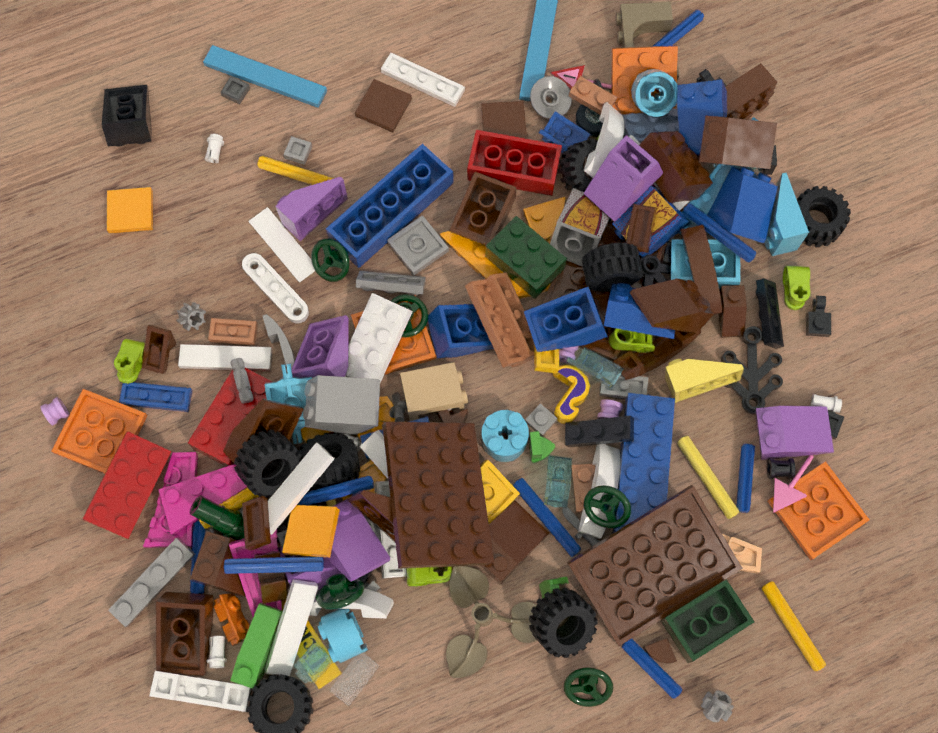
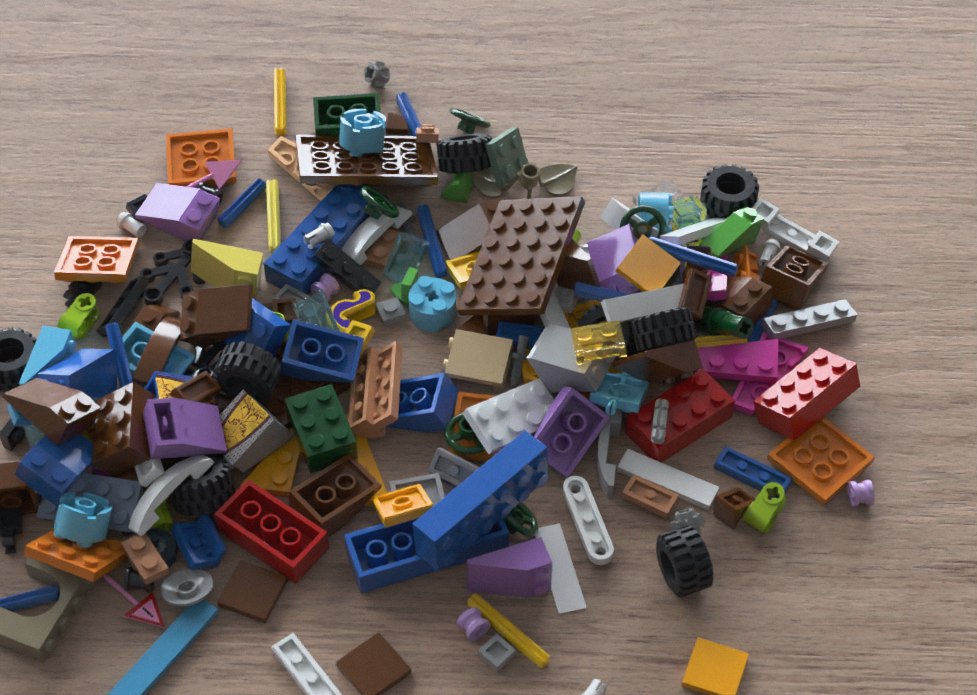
camera: 155 degrees left, 20 degrees down
(177, 267) = (684, 561): none -> black tyre
(321, 415) = (598, 341): none -> clear yellow plate
(324, 162) = (473, 624): none -> lavender wheel
(351, 224) = (481, 501): none -> blue brick
(421, 218) = (402, 505): none -> light orange tile
(520, 639) = (506, 155): none -> sand green plate
(613, 628) = (427, 133): none -> nougat plate
(640, 441) = (319, 235): none -> white pin
(663, 576) = (362, 132): none -> medium azure brick
(824, 344) = (96, 259): none -> orange plate

